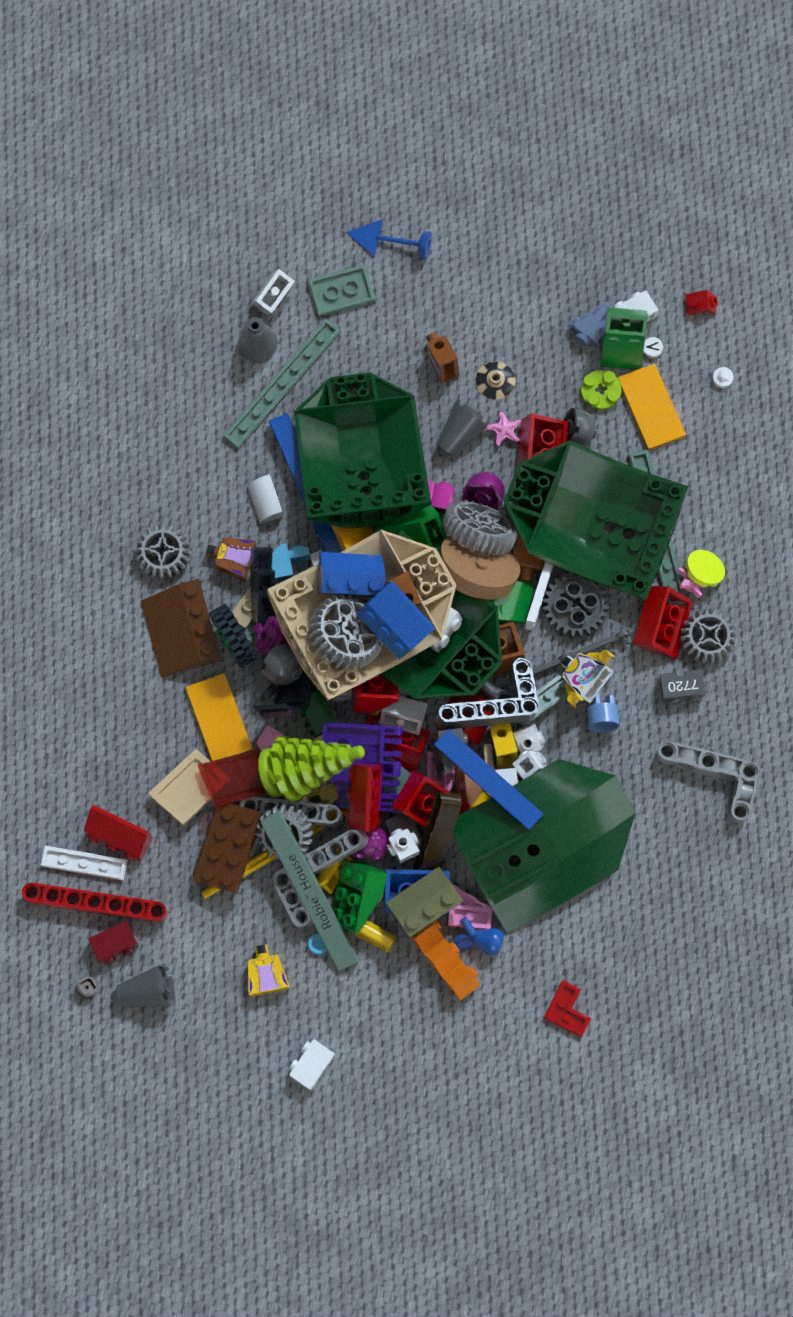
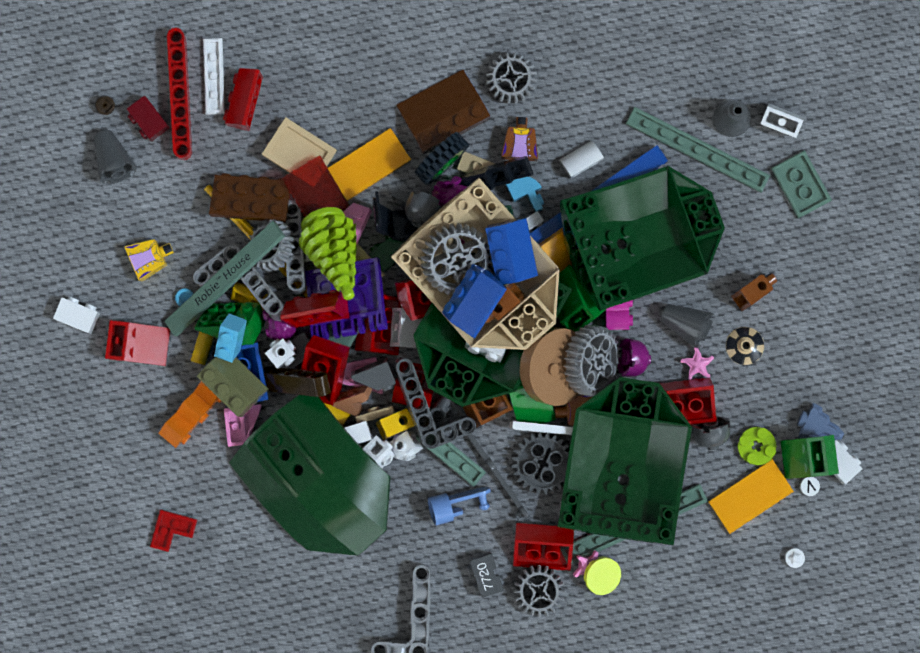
camera: 80 degrees right, 10 degrees up
(328, 792) = (314, 276): clear yellow plant -> none
(357, 1003) = (137, 343): none -> slope
(369, 236) = (861, 198): blue piece -> none
(376, 891) = (230, 338): none -> medium azure brick
(487, 939) = (216, 446): blue piece -> none
(488, 779) = (351, 416): blue tile -> none
(586, 675) = (472, 485): torso -> none
(701, 302) = (864, 523): red bracket -> none

